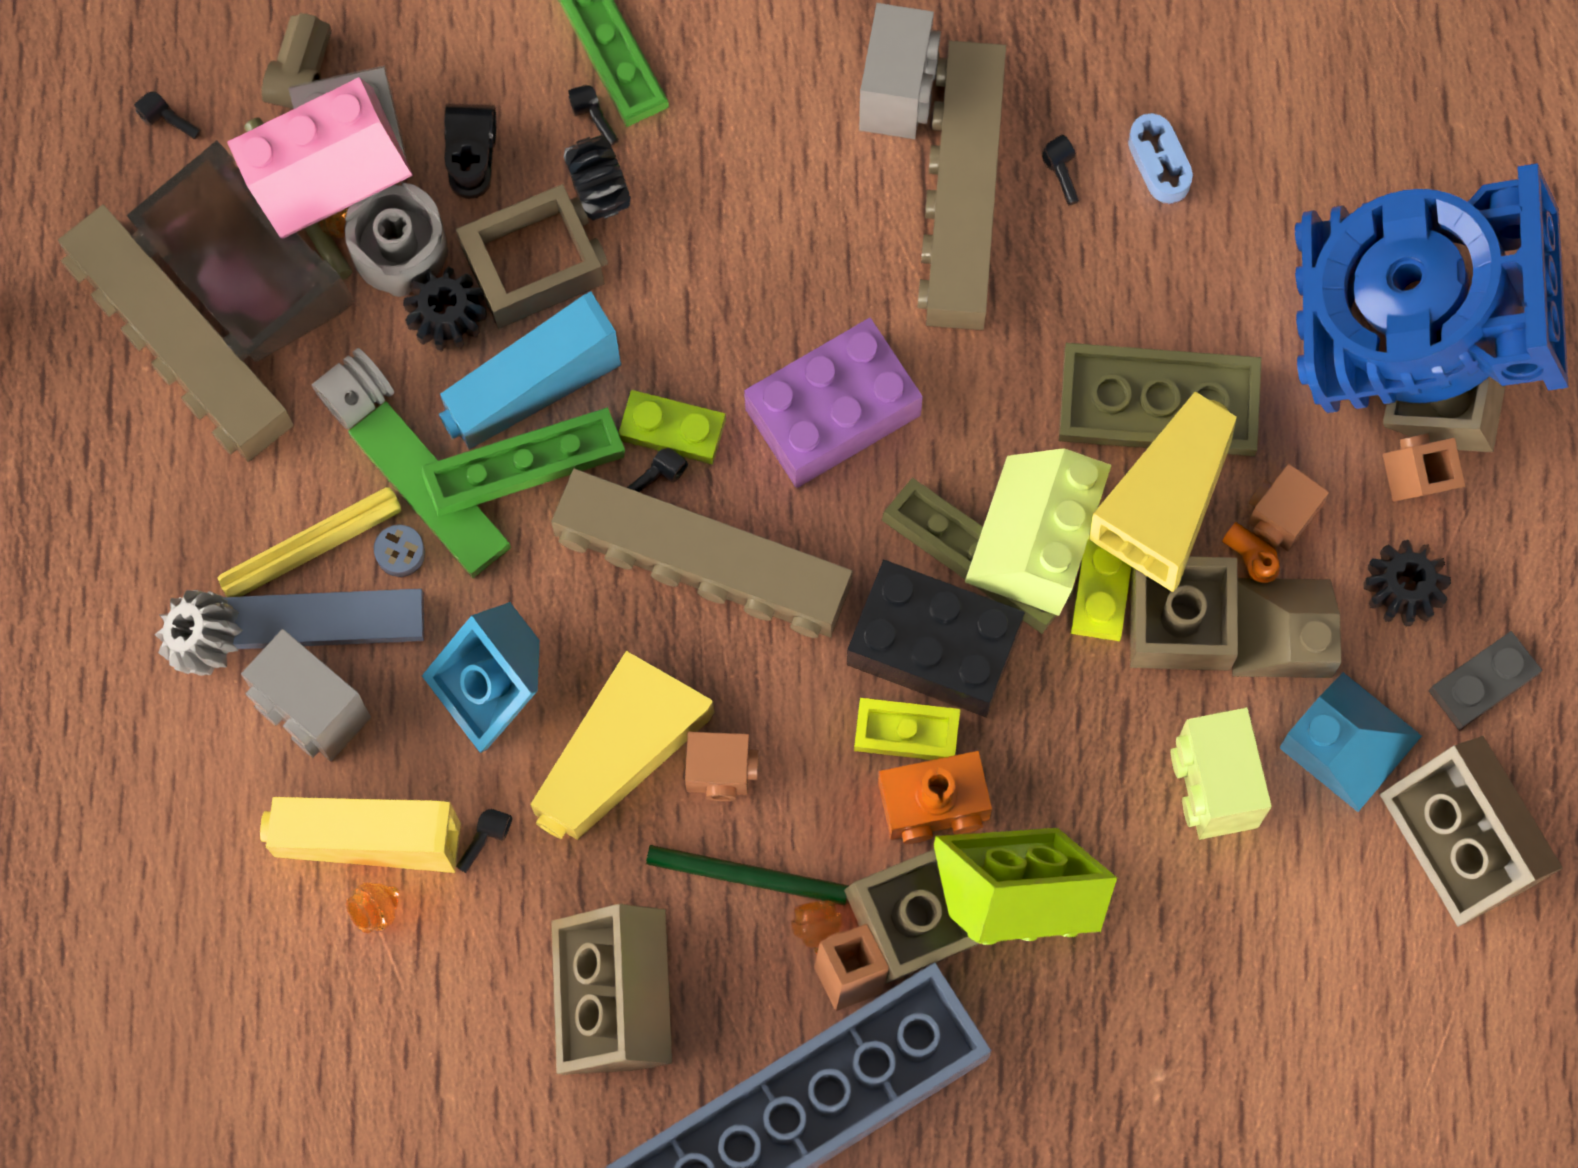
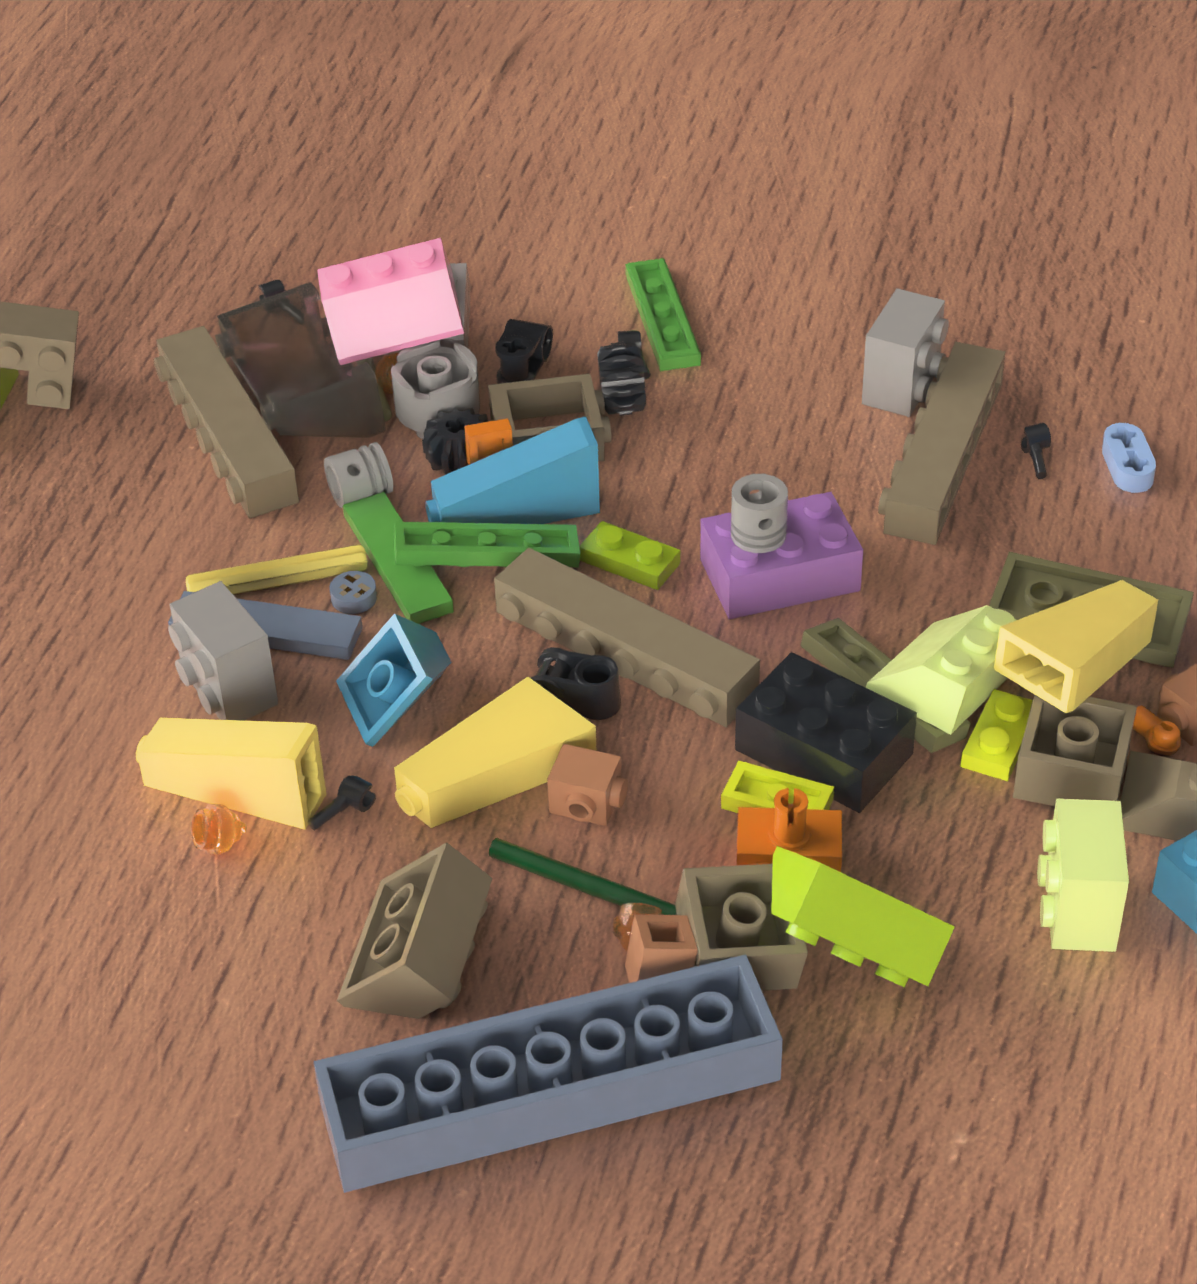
camera: 15 degrees right, 30 degrees down
(198, 632) = (144, 601): light grey gear -> none
(488, 331) = (487, 439): none -> orange plate
(665, 462) = (616, 575): black hand -> none
(665, 629) = (581, 681): none -> black piece
(812, 396) = (760, 517): none -> light grey piece

